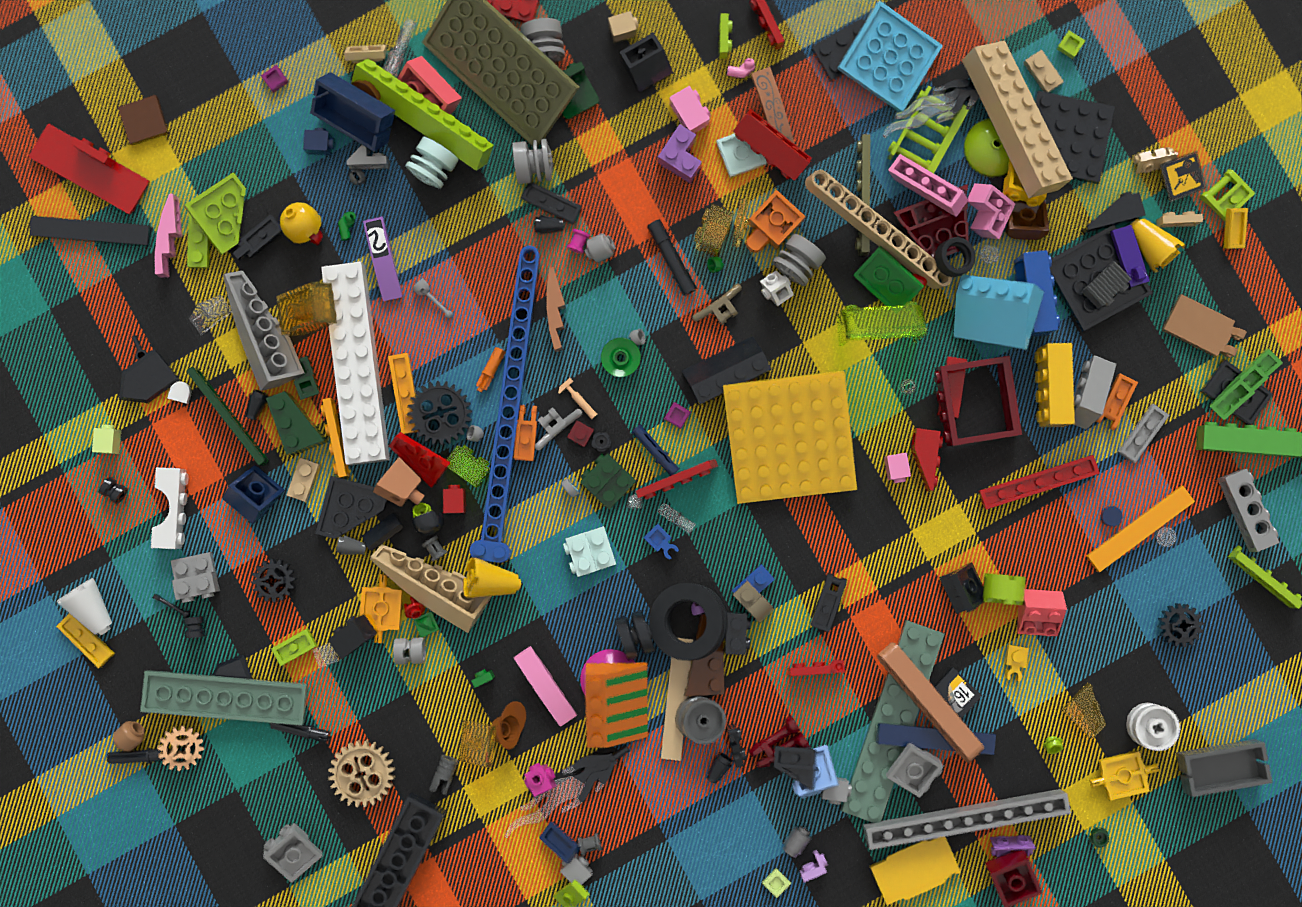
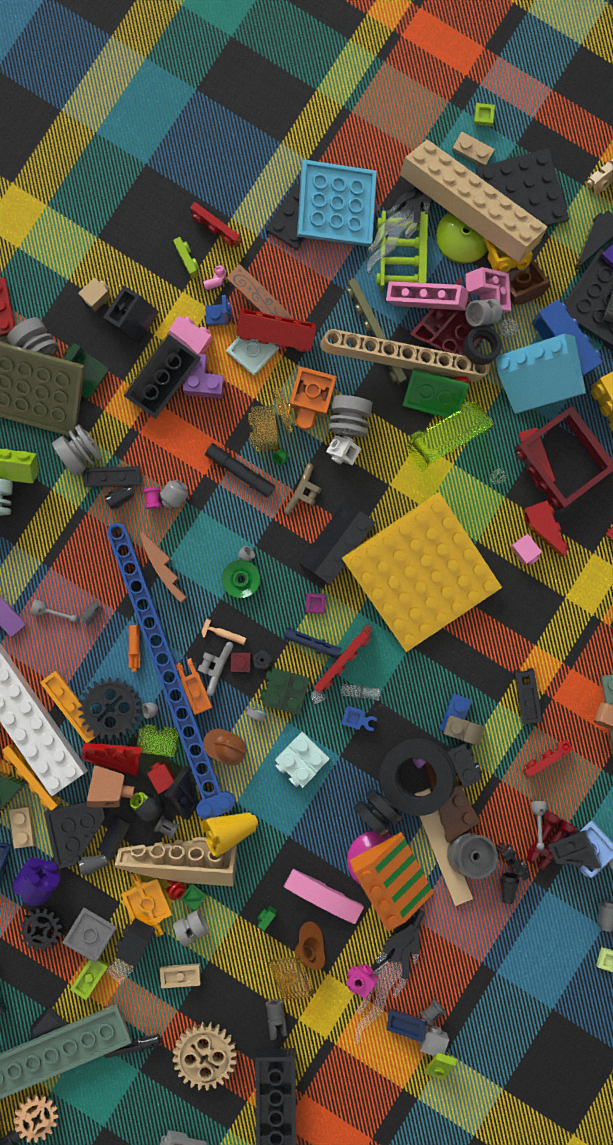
camera: 25 degrees left, 0 degrees up
(292, 533) = (36, 881): none -> dark purple brick
(314, 609) = (89, 935): none -> flat silver tile
(377, 689) = (180, 975): none -> tan plate
(465, 525) = (182, 794): none -> black wing
(467, 317) = (90, 613): none -> dark grey pin
(526, 502) = (224, 747): none -> dark orange piece
(646, 132) = (162, 374): none -> black slope
(728, 103) = (219, 314): none -> blue bracket
(784, 710) = (539, 809): none -> light grey hinge
(972, 227) = (483, 312): none -> light grey wheel

